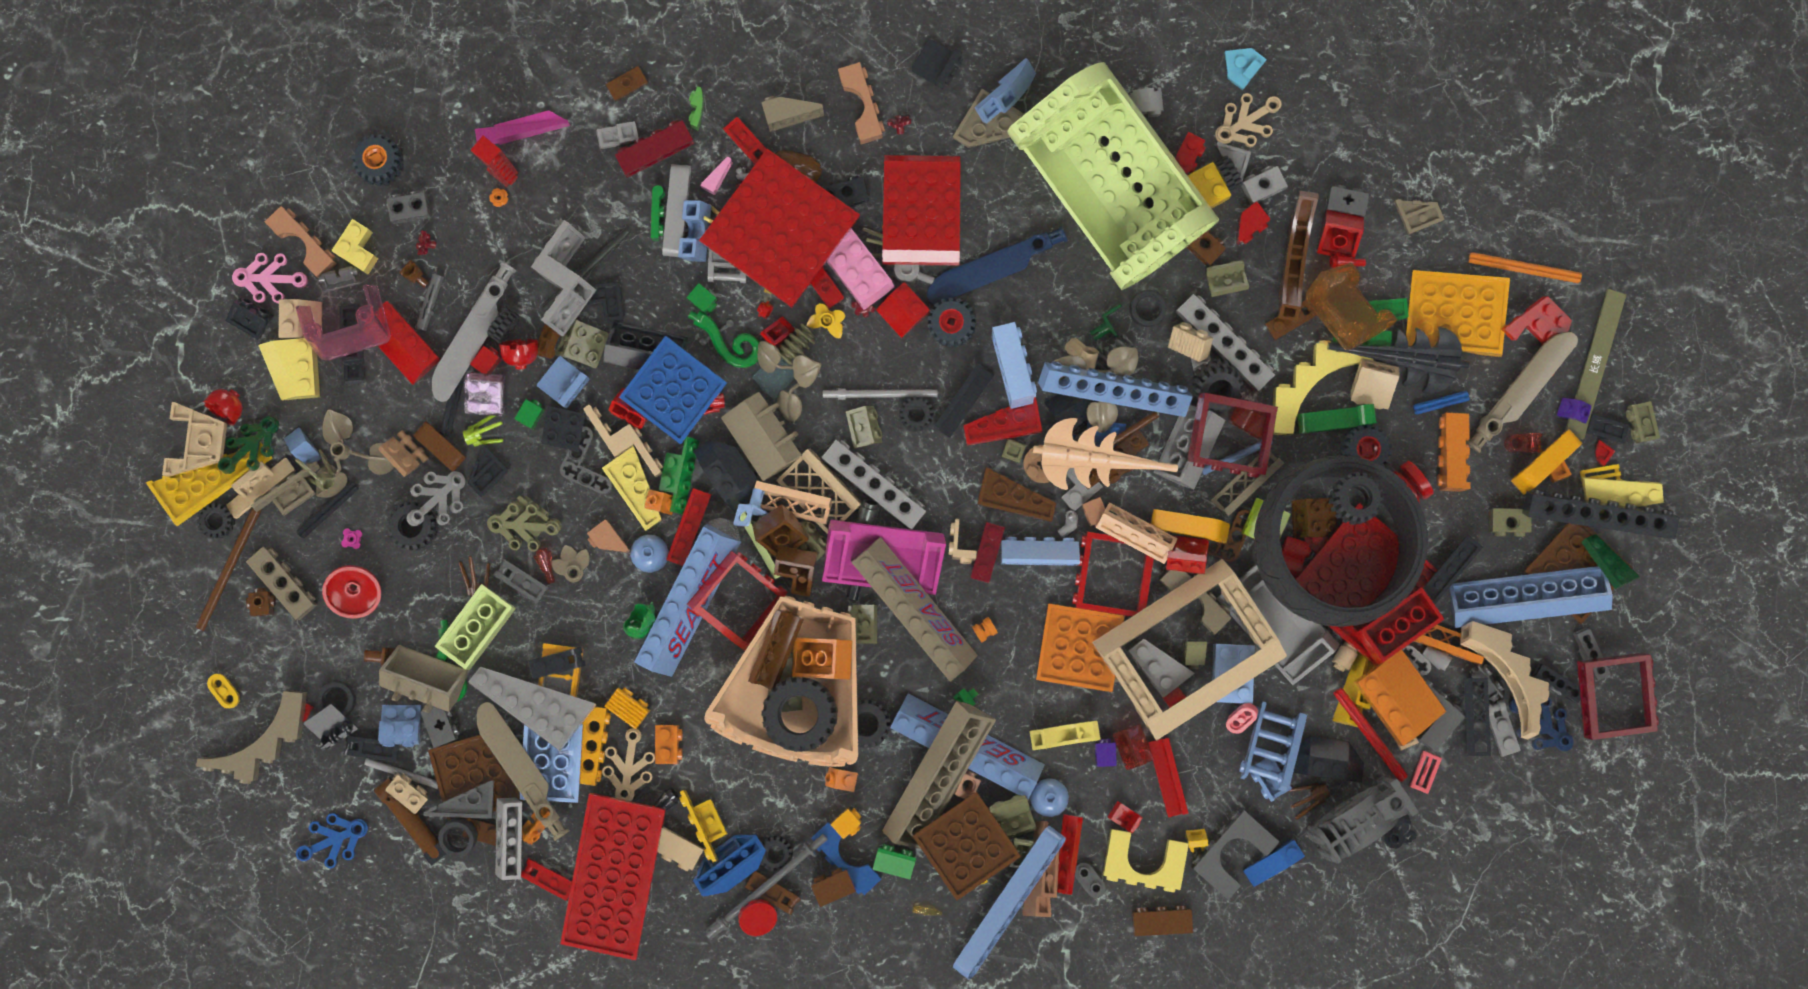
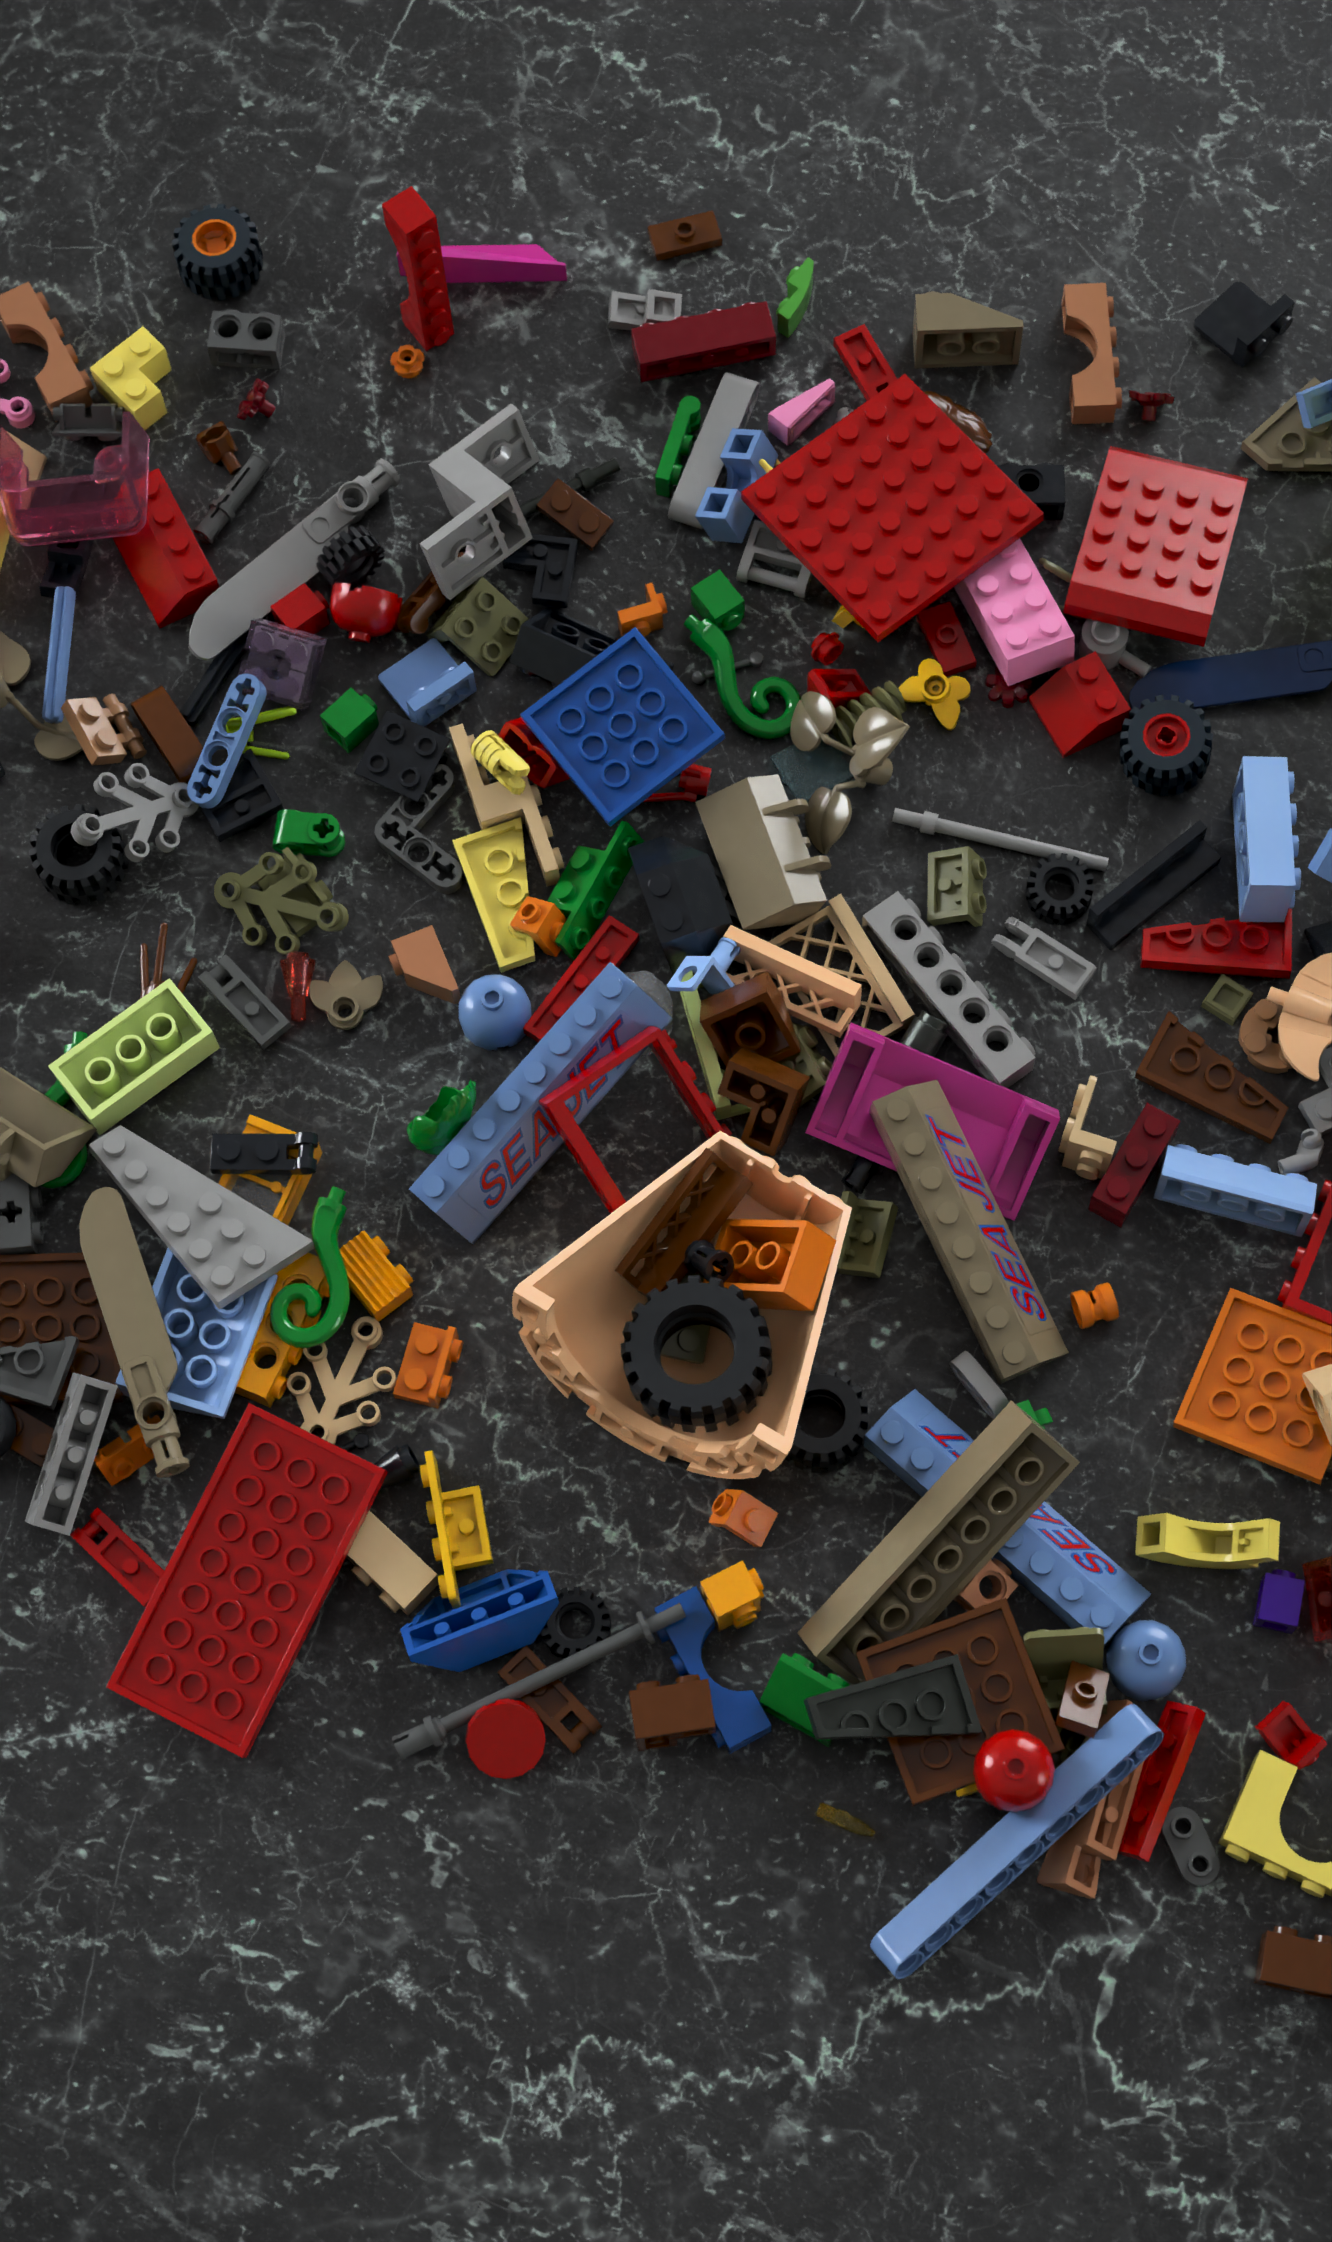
camera: 20 degrees right, 15 degrees down
(366, 417) = (58, 654): none -> medium blue axle
(468, 446) = (232, 742): none -> medium blue beam
(524, 483) = (308, 833): none -> green piece
(598, 691) = (324, 1230): none -> green plant
(613, 267) = (574, 514): none -> reddish brown plate
(616, 422) = (500, 761): none -> light yellow hinge
(664, 320) = (646, 616): none -> orange bracket
(792, 666) = (717, 1258): none -> black bush
(919, 453) = (1046, 958): none -> light grey hinge
(938, 684) = (979, 1384): none -> light grey beam
(943, 856) = (906, 1703): none -> pearl dark grey wing
(999, 874) = (1013, 1770): none -> red cylinder
(1023, 829) = (1082, 1699): none -> reddish brown plate

